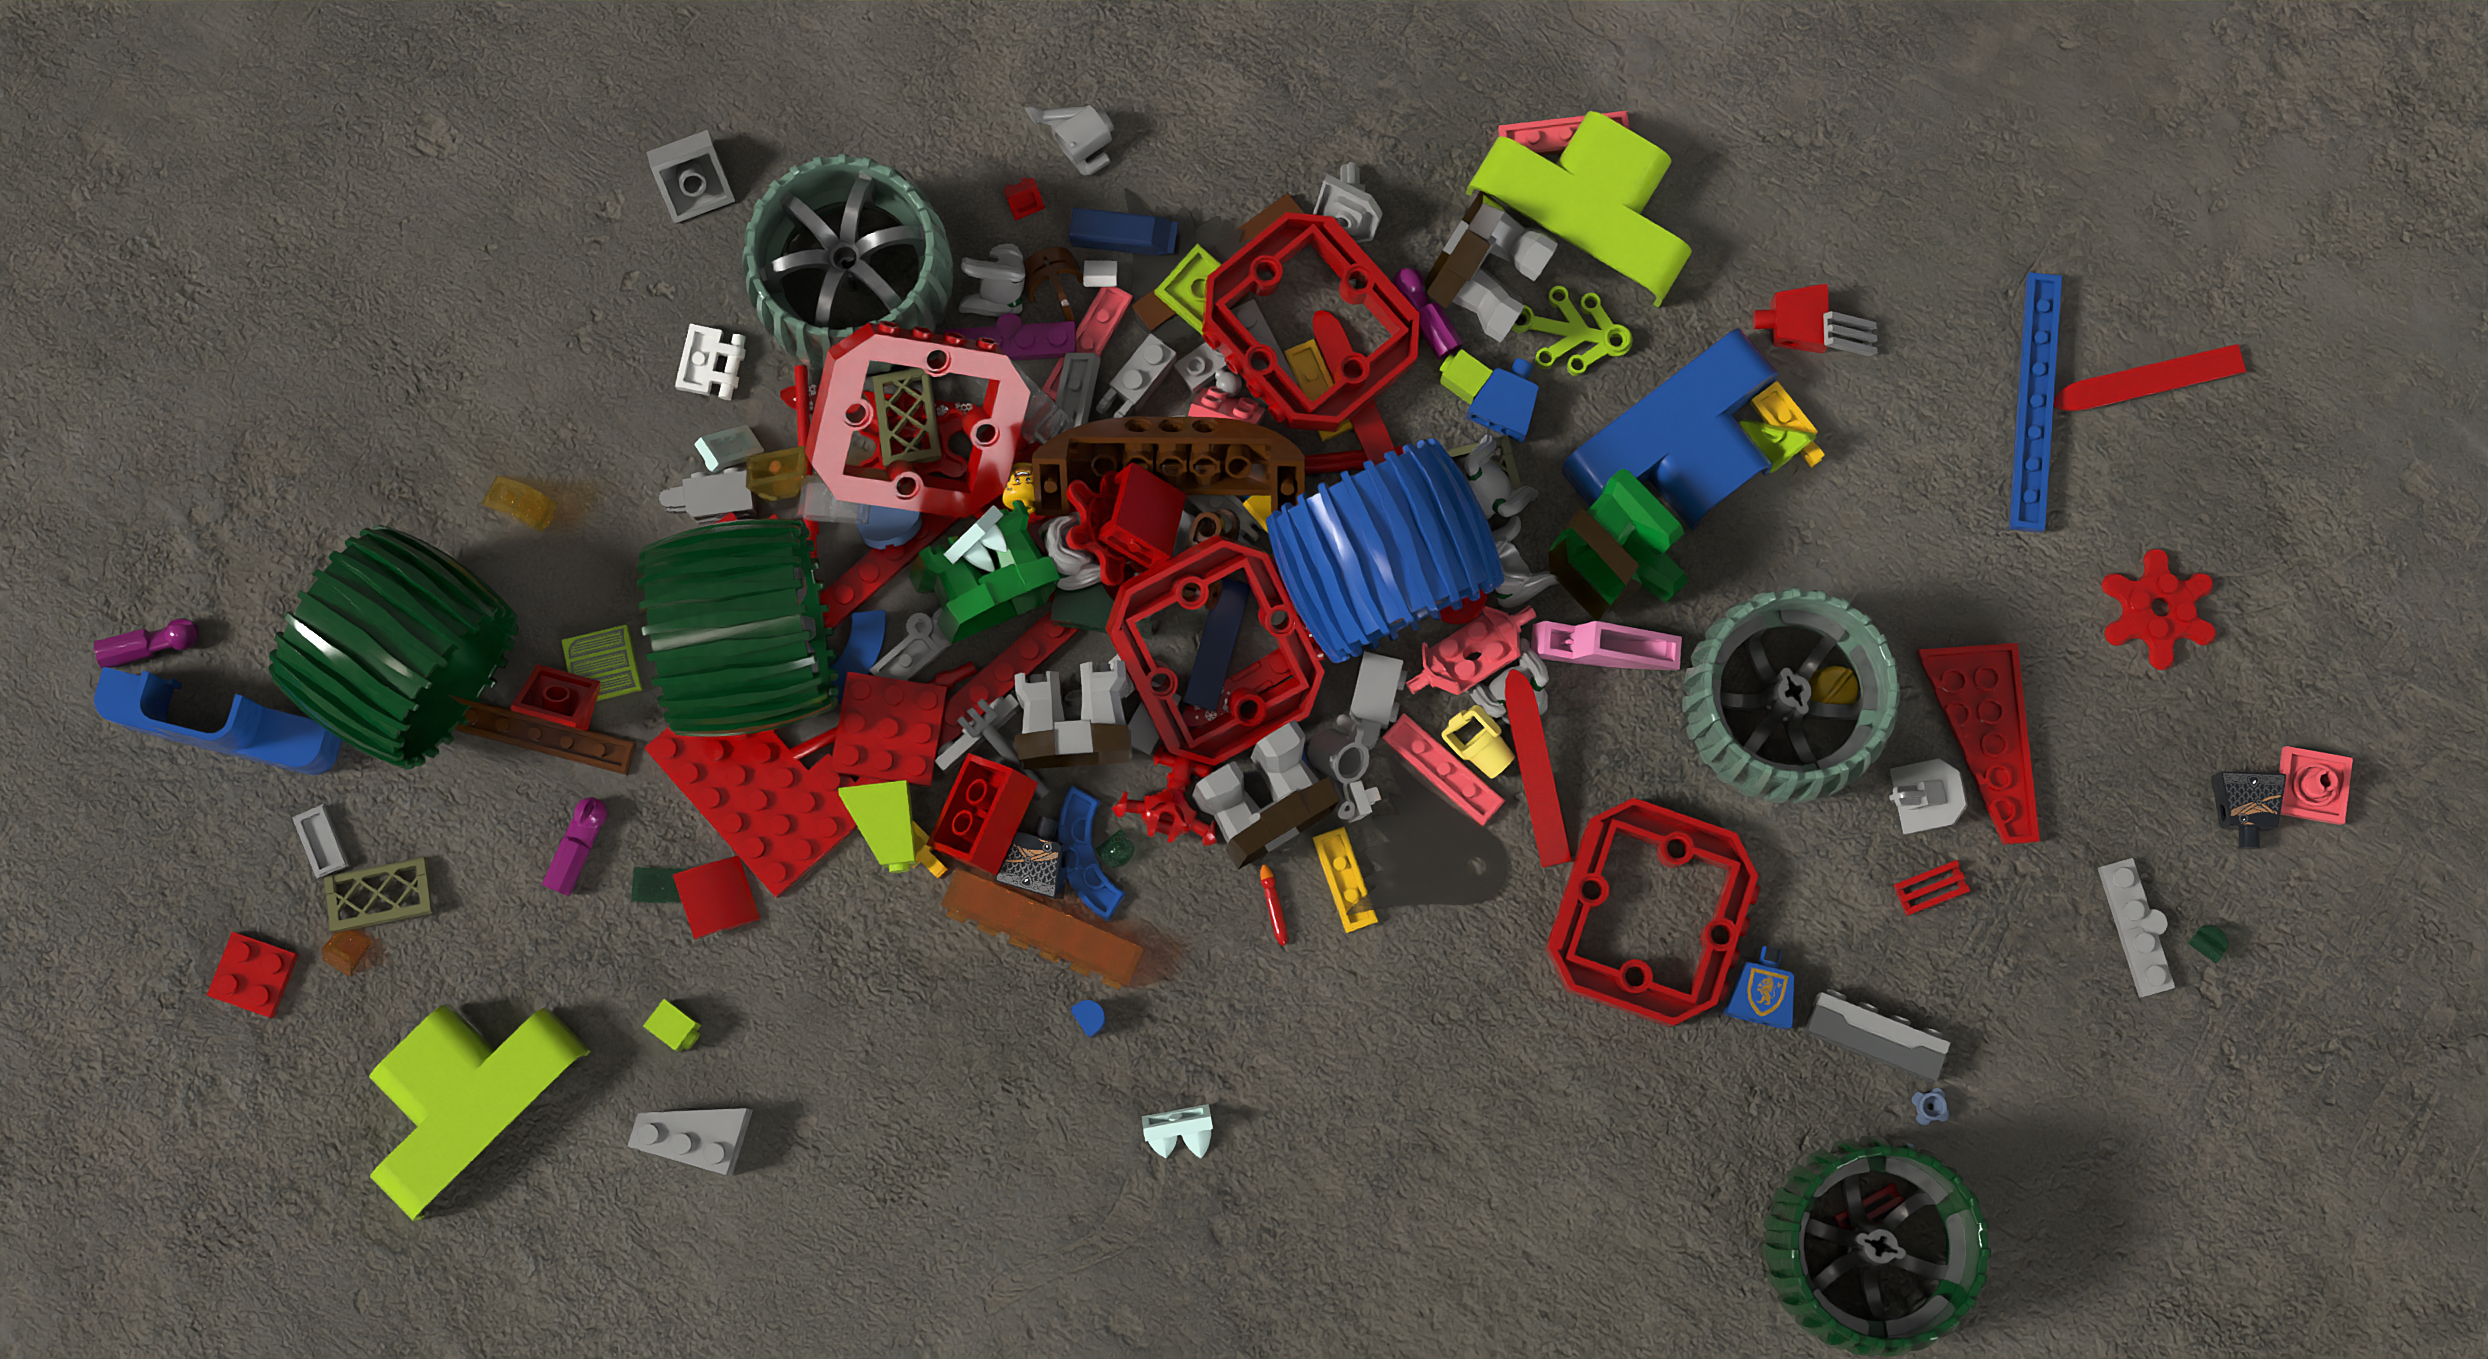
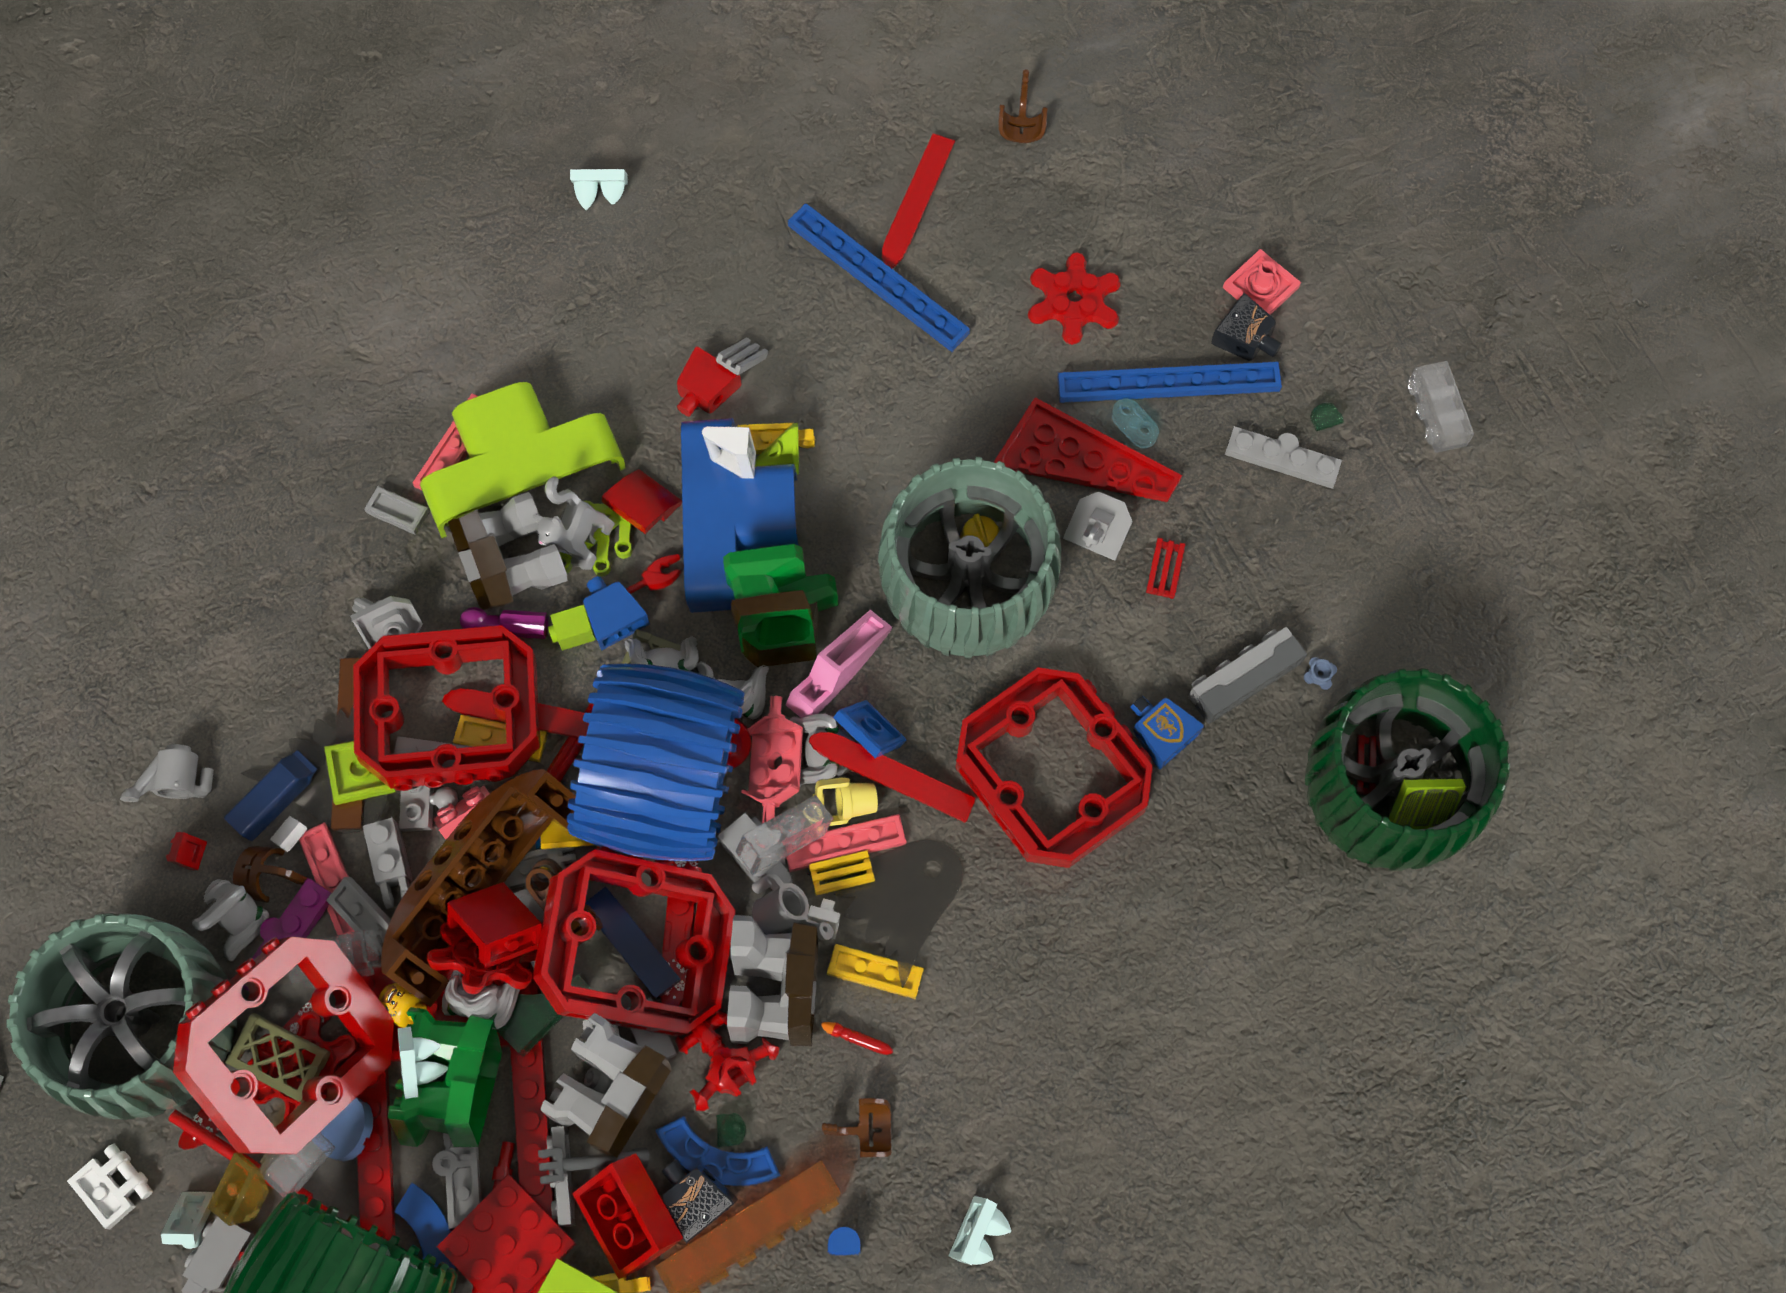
camera: 55 degrees left, 10 degrees down
(1217, 976) = (881, 1120): none -> reddish brown helmet
(1406, 710) = (784, 835): none -> clear brick
(1418, 775) = (839, 862): none -> yellow tile
(1463, 131) = (396, 510): none -> light grey tile
(1560, 308) = (575, 527): none -> light grey animal
(1564, 717) = (870, 728): none -> blue tile
(1569, 414) = (653, 575): none -> red hand
(1634, 347) = (641, 500): none -> red slope
(1737, 399) = (737, 449): none -> white tile
(1855, 1285) = (1426, 802): none -> lime tile
(1920, 54) = (587, 182): none -> light aqua tile
(2066, 757) = (1132, 423): none -> clear light blue plate
(2134, 763) = (1169, 382): none -> blue plate
(2307, 1050) = (1440, 407): none -> clear brick
(2313, 440) = (1029, 134): none -> reddish brown helmet

